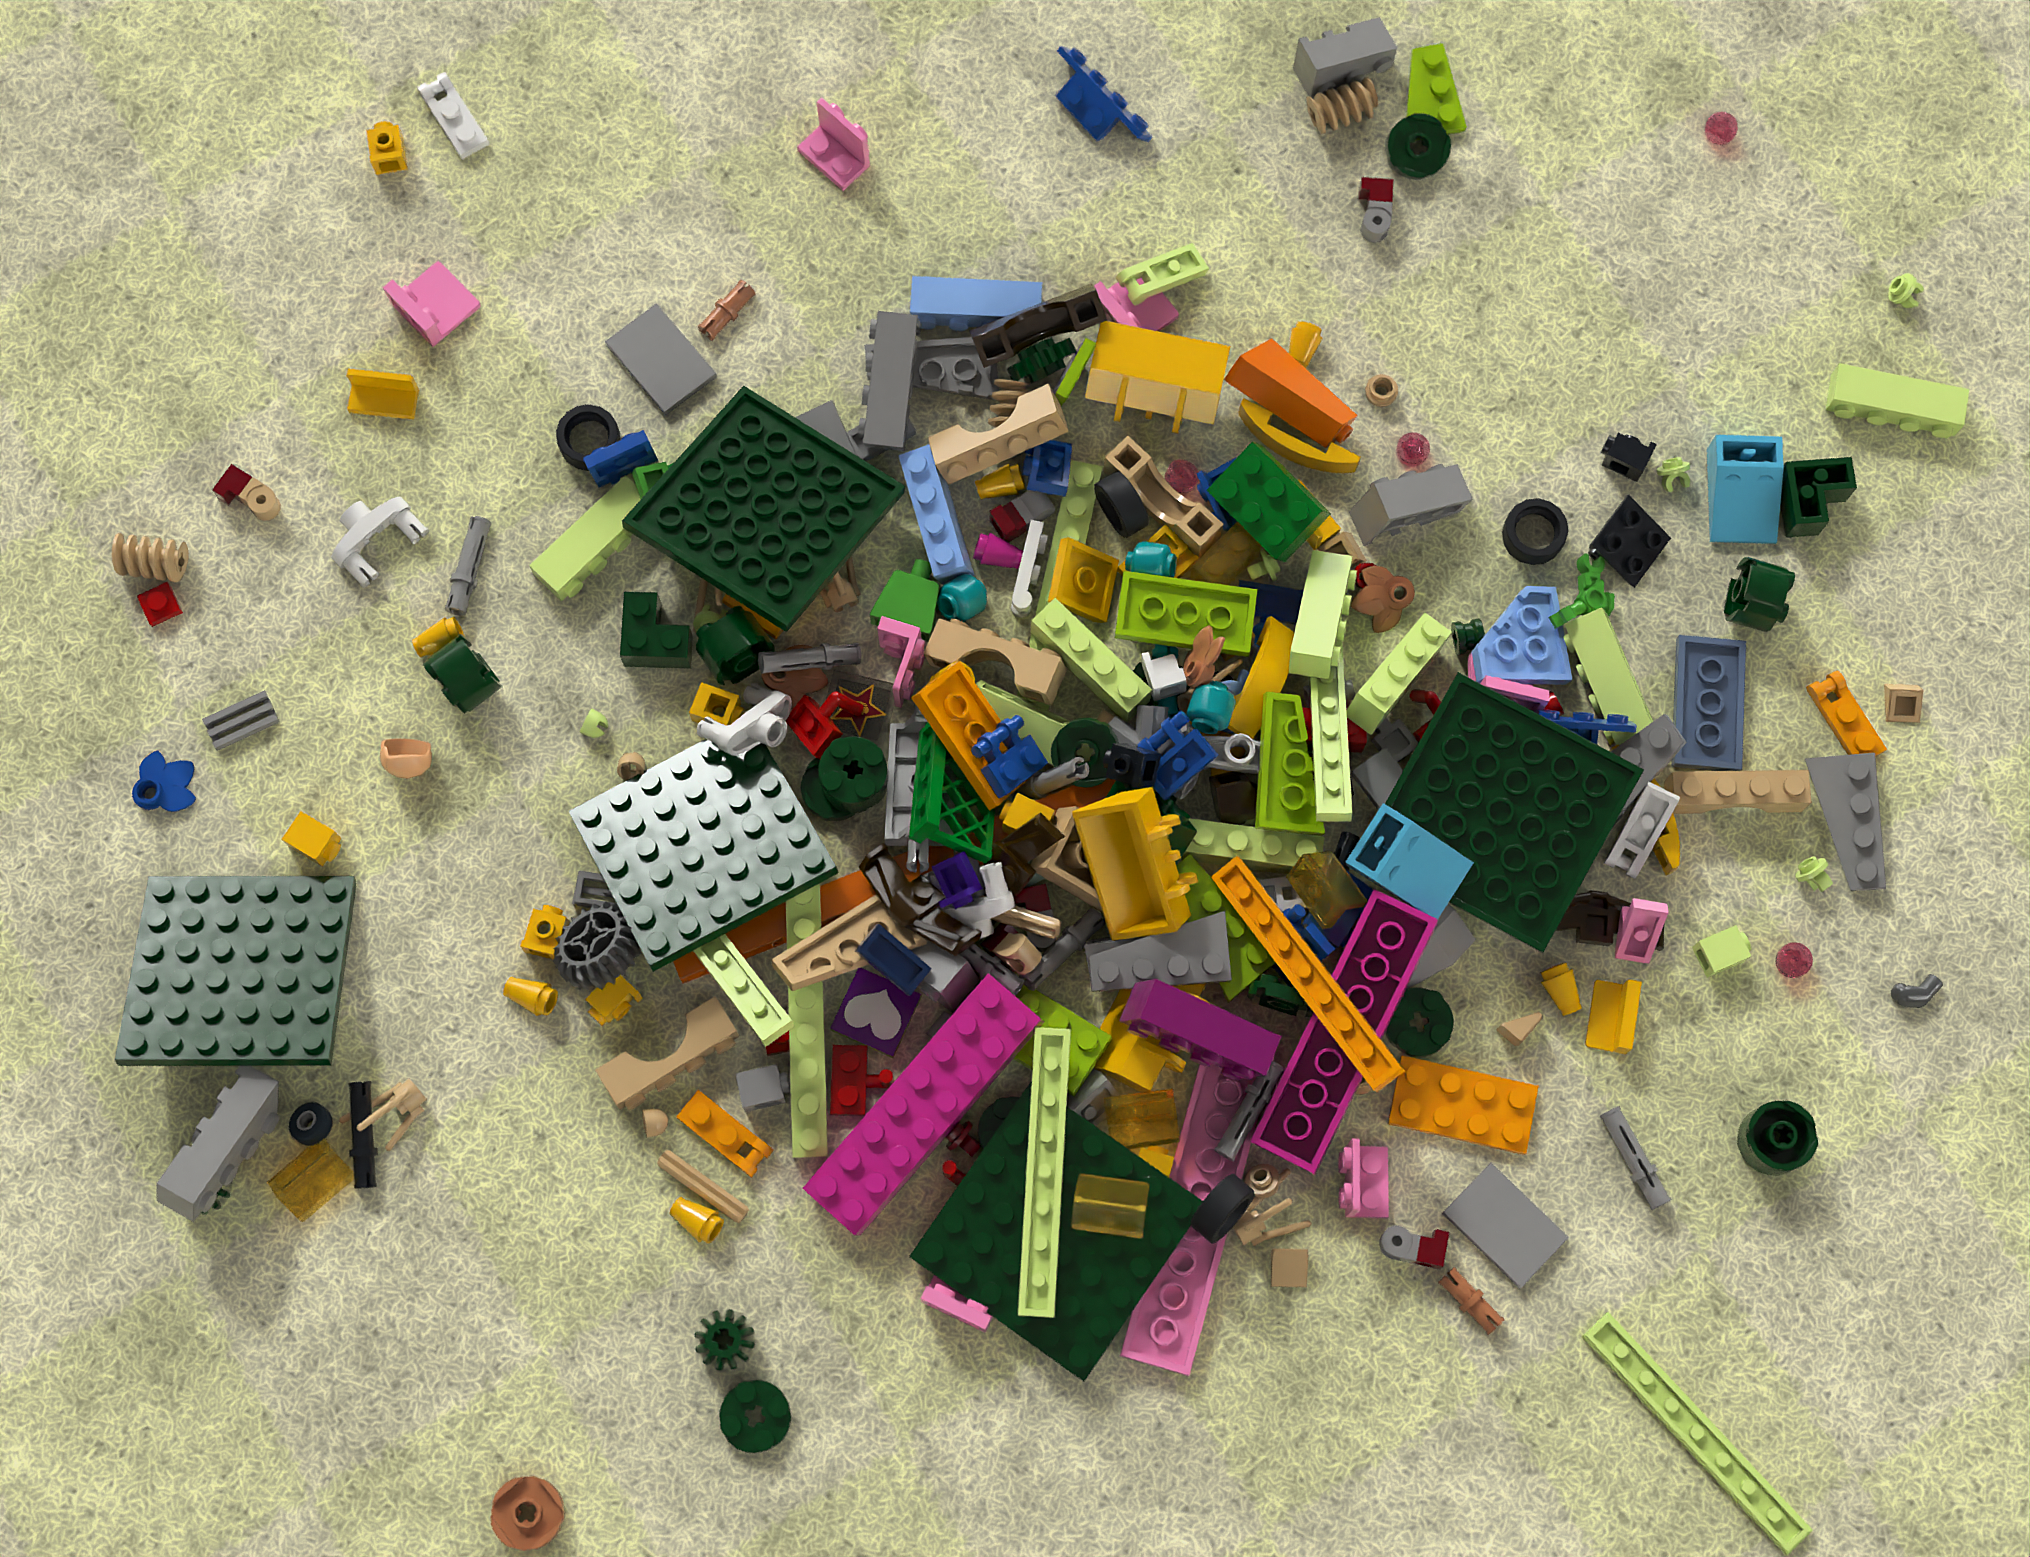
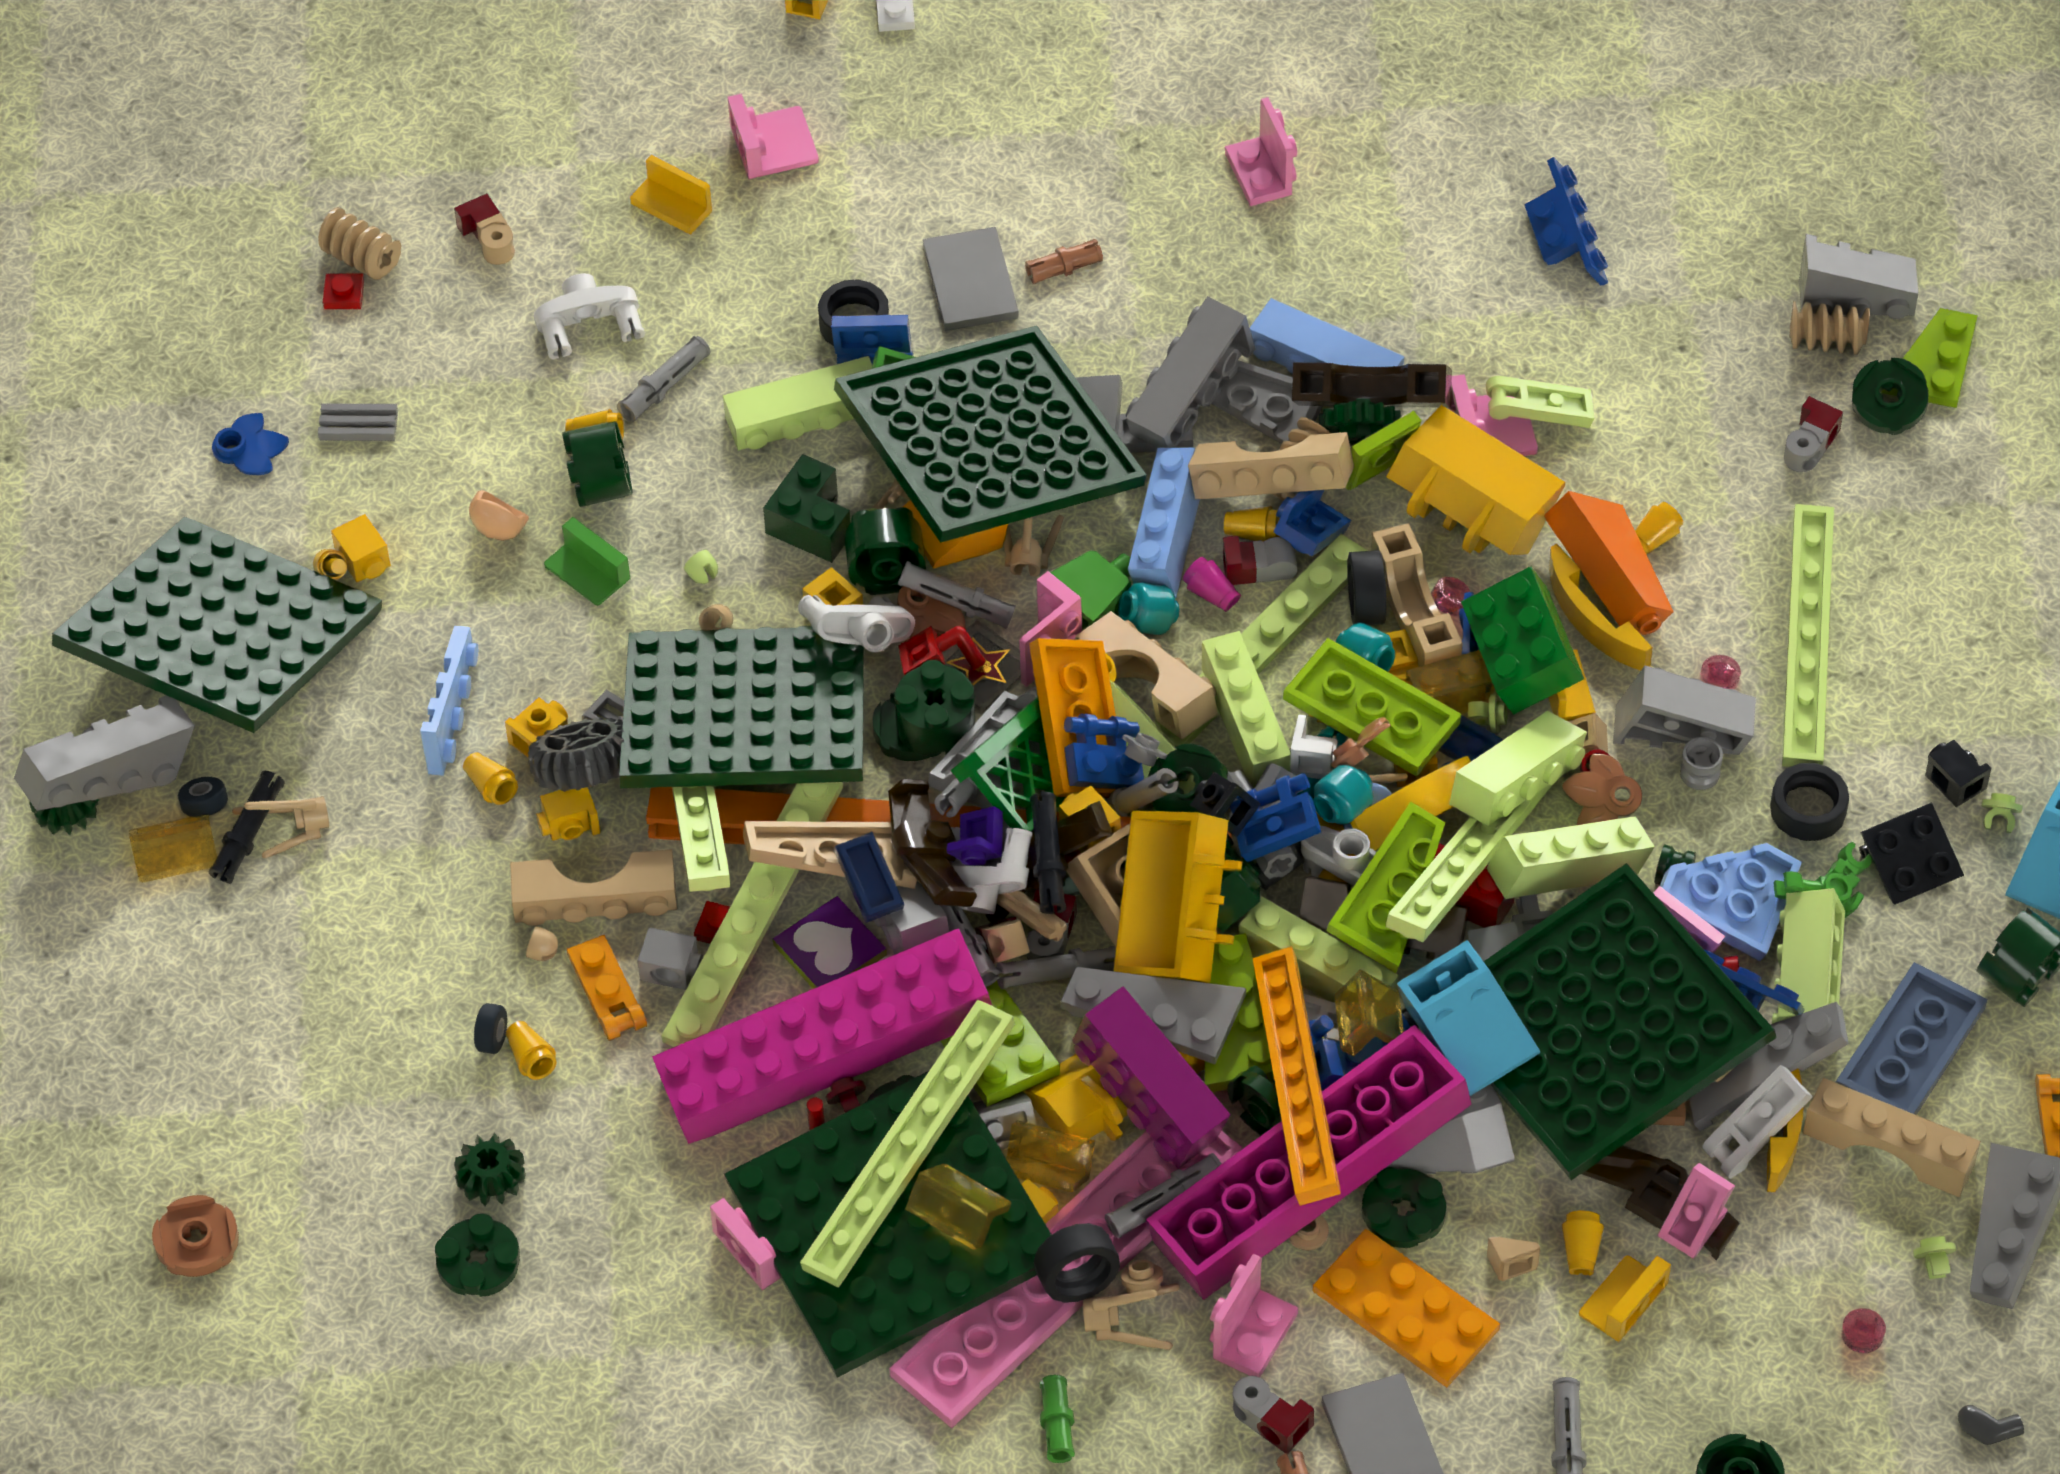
camera: 30 degrees right, 20 degrees down
(288, 861) = (330, 561): none -> yellow cylinder
(470, 958) = (445, 709): none -> light blue wing
(501, 765) = (588, 563): none -> bright green panel
(657, 1218) = (490, 1028): none -> black wheel
(703, 1186) = (555, 1025): tan axle -> none
(851, 1080) = (768, 986): red plate -> none
(1019, 871) = (1049, 868): none -> black pin
(1028, 571) = (1235, 609): white plate -> none
(1041, 742) = (1143, 749): none -> light grey plate
(1083, 580) = (1283, 638): yellow plate -> none
(1263, 1330) = (1057, 1419): none -> bright green pin
(1289, 1267) = (1122, 1372): tan slope -> none
(1381, 381) = (1721, 596): tan plate -> none
(1444, 530) = (1701, 763): none -> light grey wheel
(1461, 387) = (1808, 635): none -> yellowish green plate
(1722, 951) = (1785, 1283): yellowish green brick -> none

